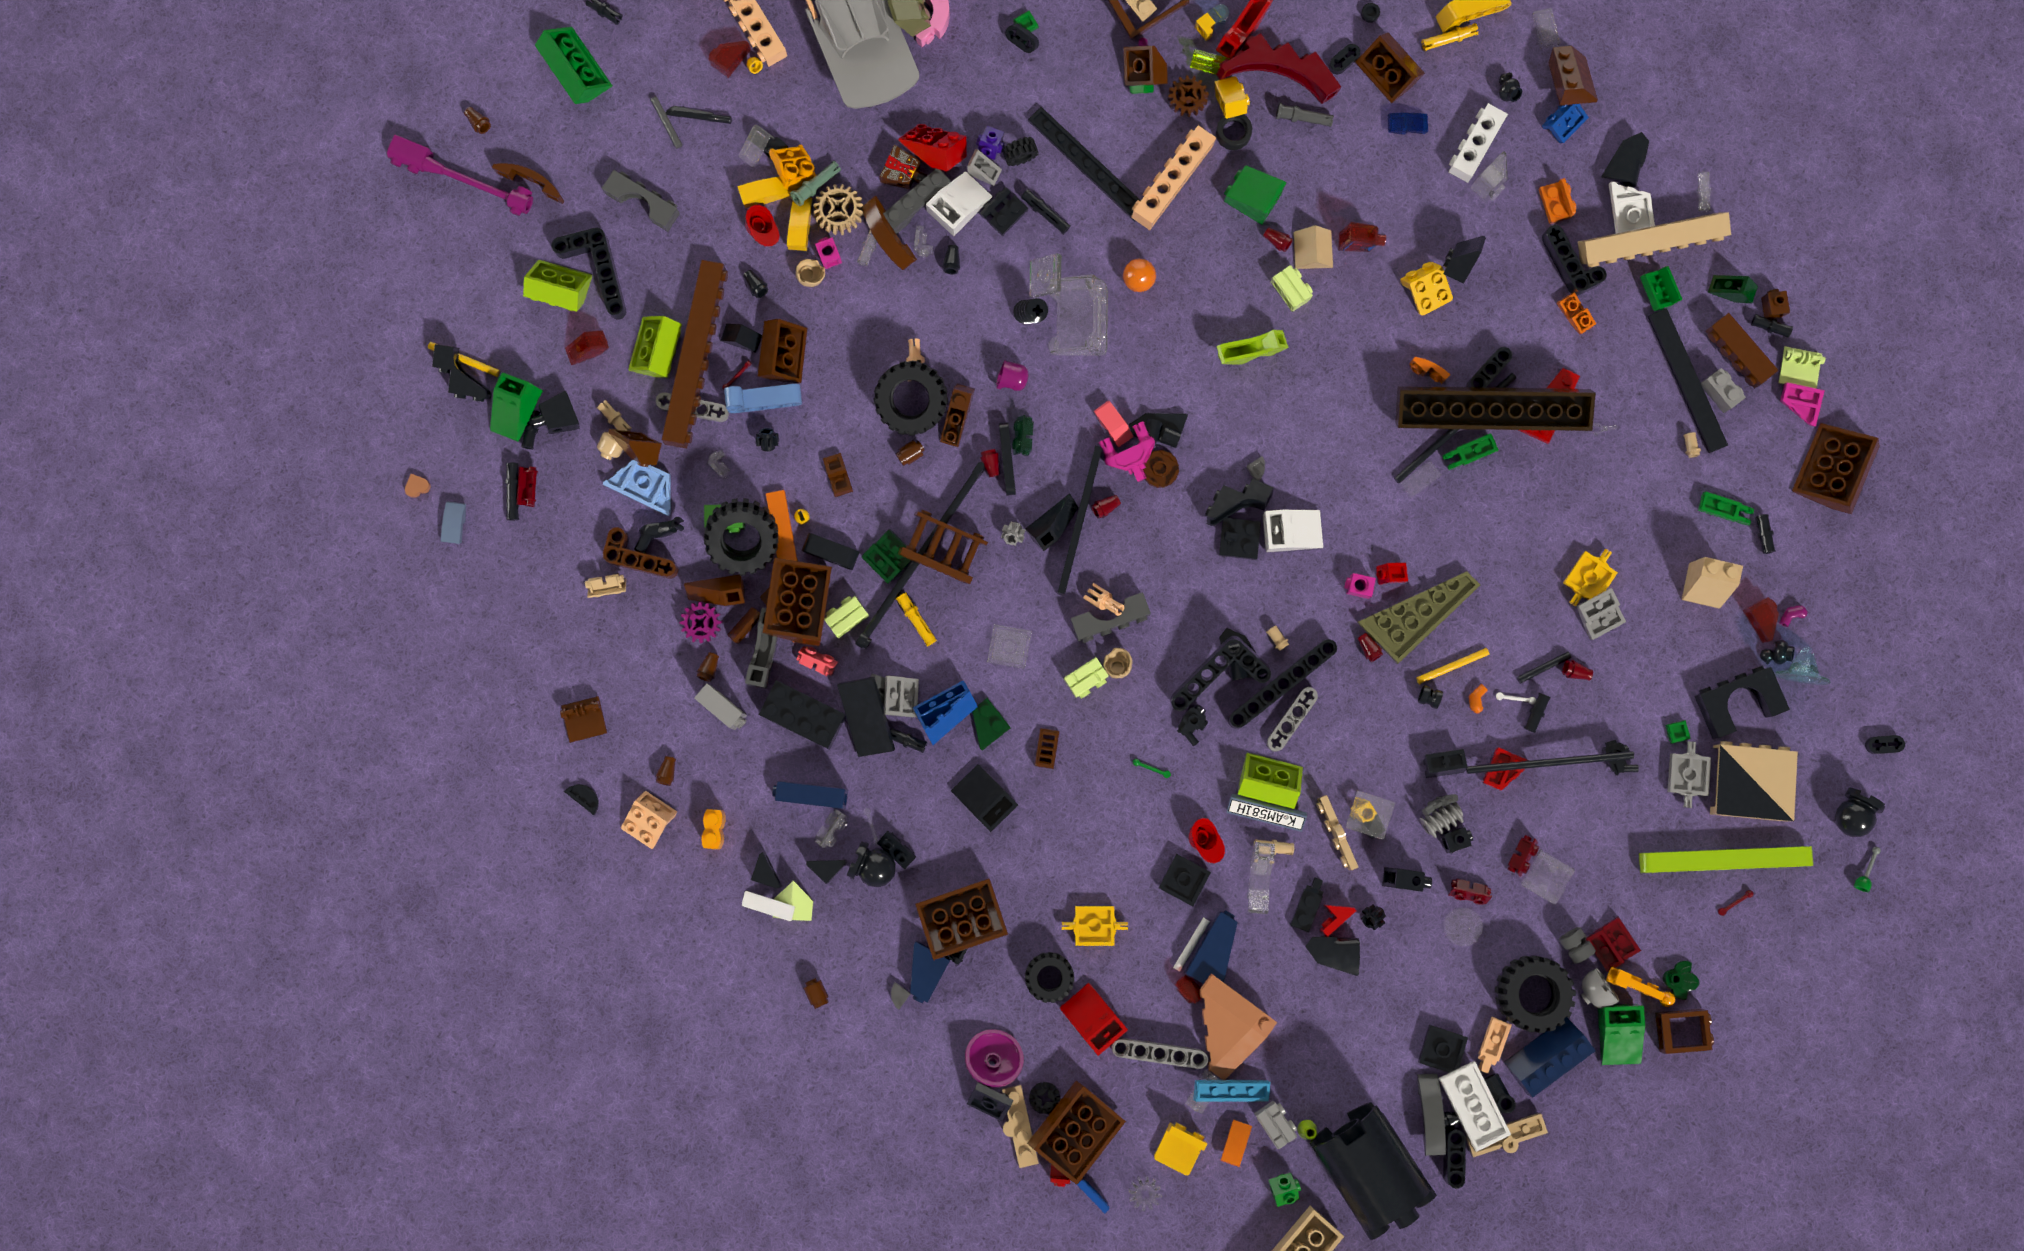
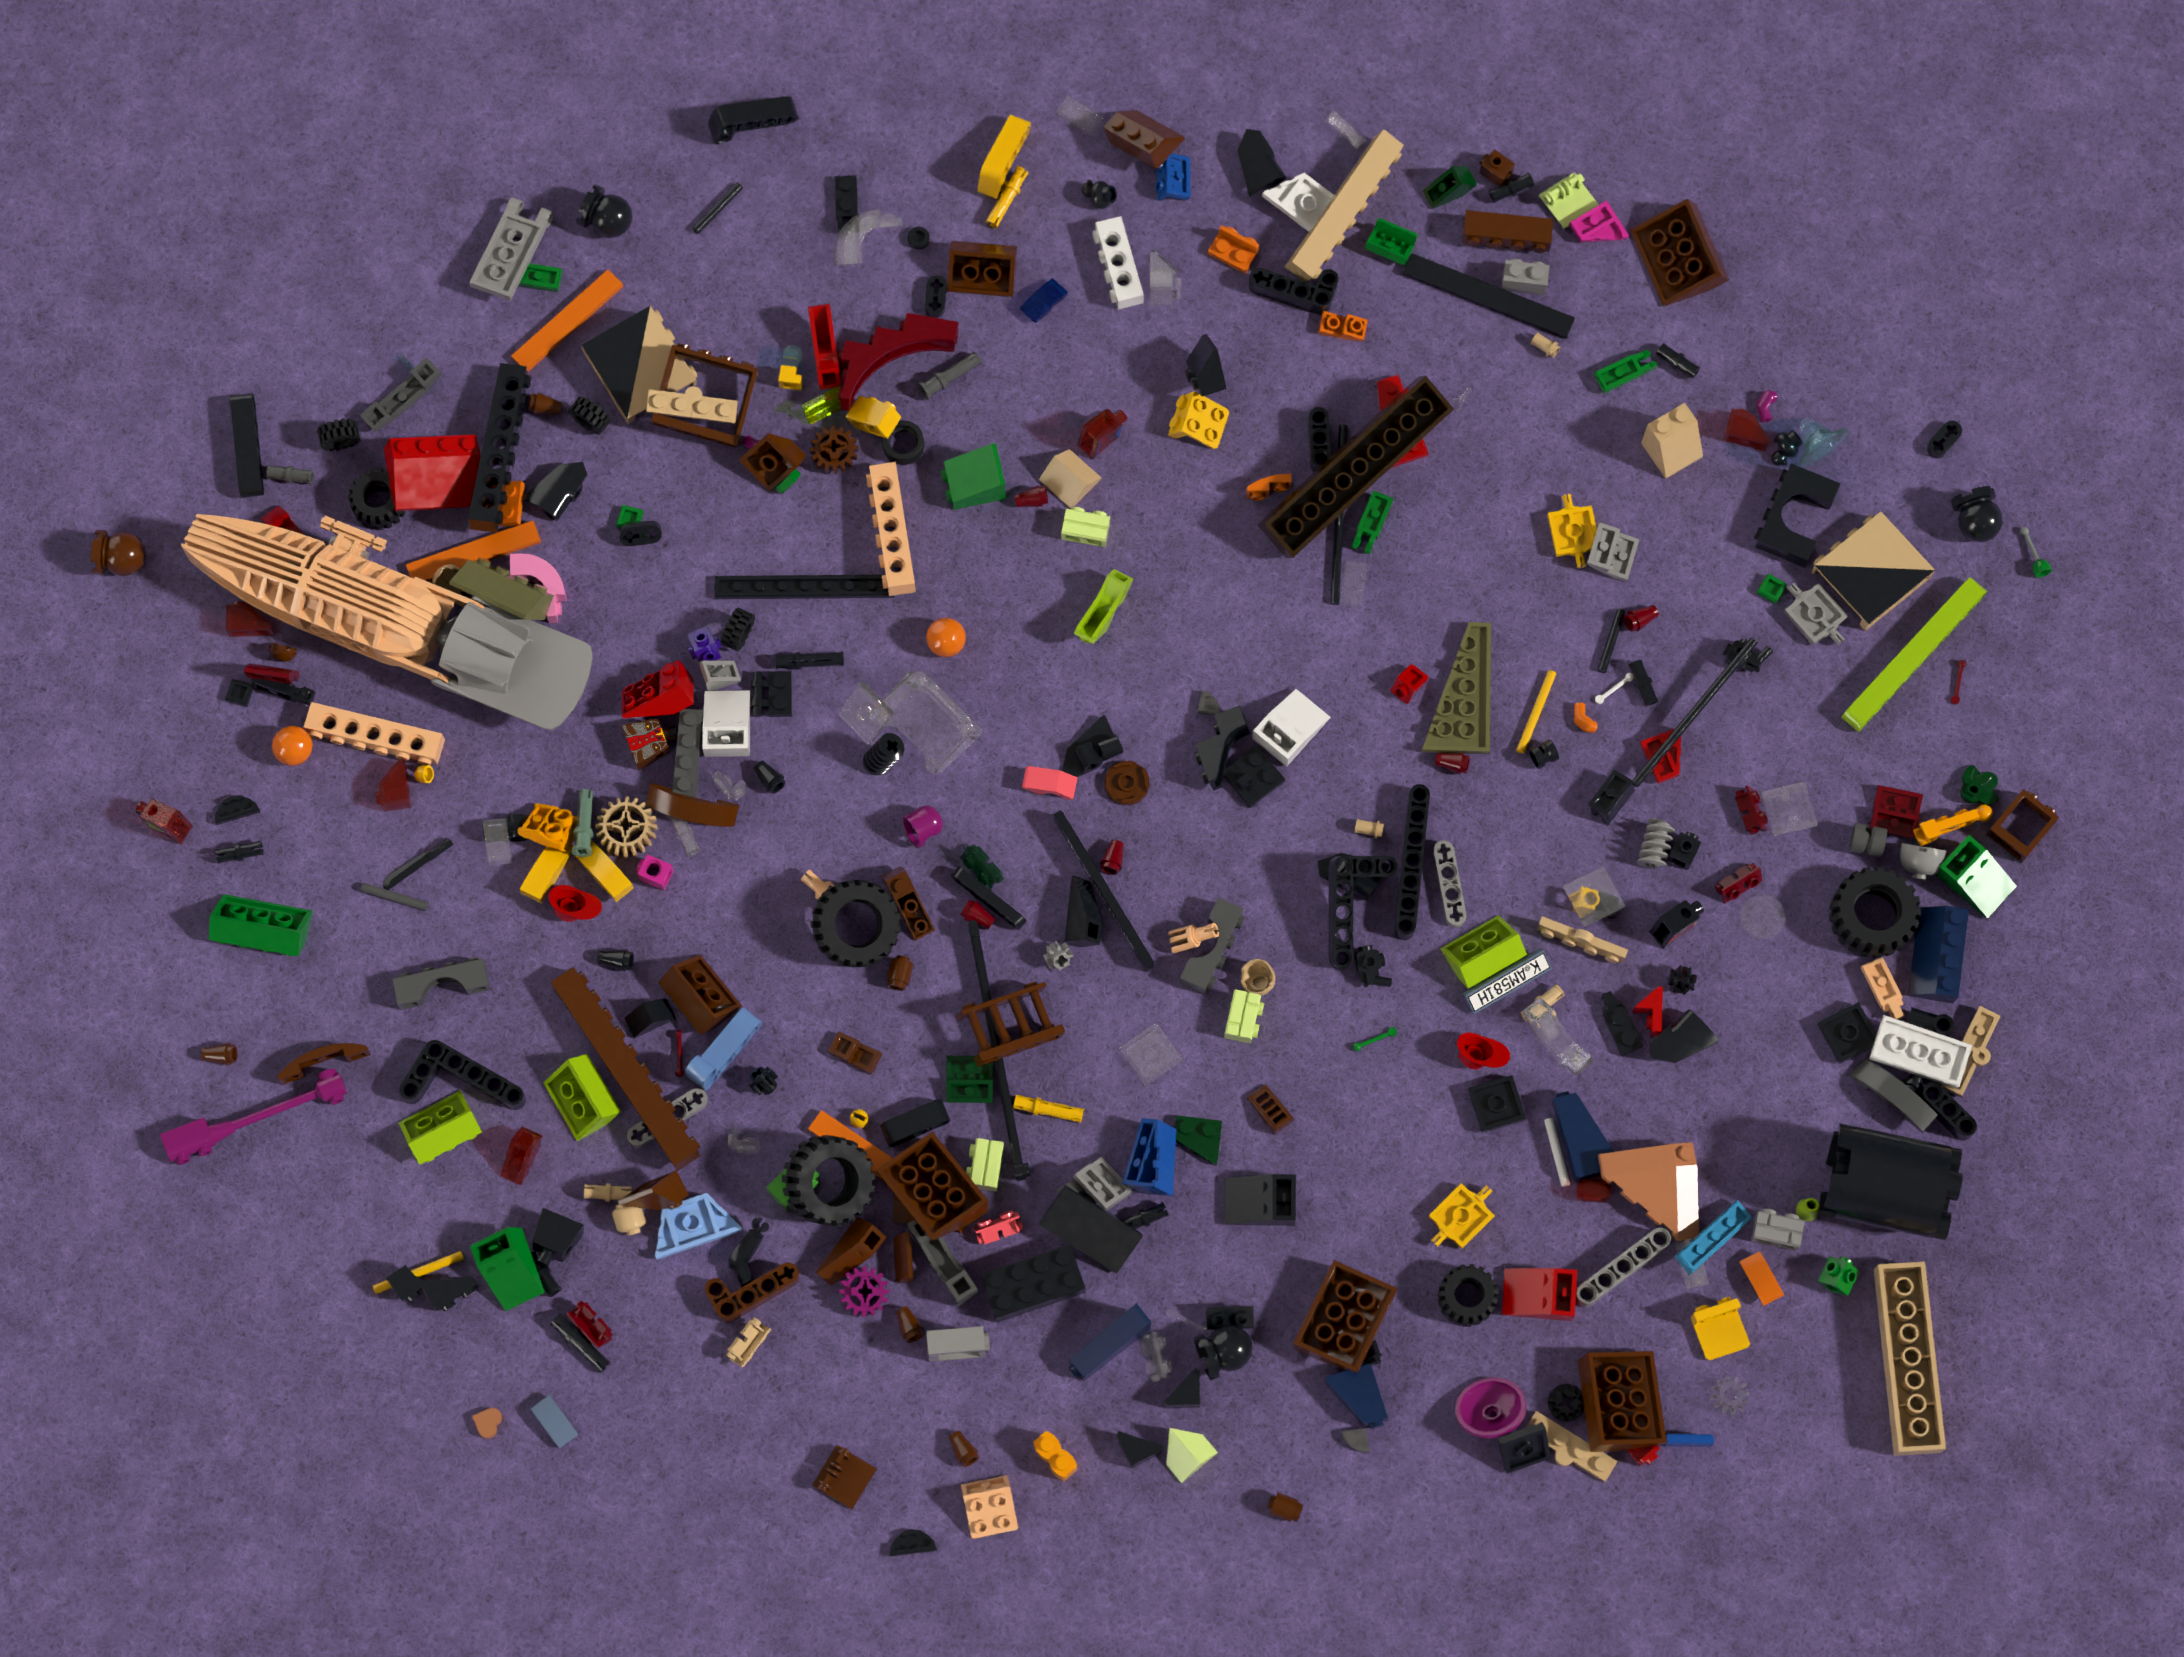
camera: 45 degrees left, 10 degrees down
(768, 906) = (1169, 1473): white sticker -> none
(810, 273) = (656, 903): tan hair -> none
(1132, 458) = (1096, 794): dark pink connector -> none
(1368, 583) = (1400, 712): dark pink brick -> none
(1440, 801) = (1639, 832): dark grey piece -> none

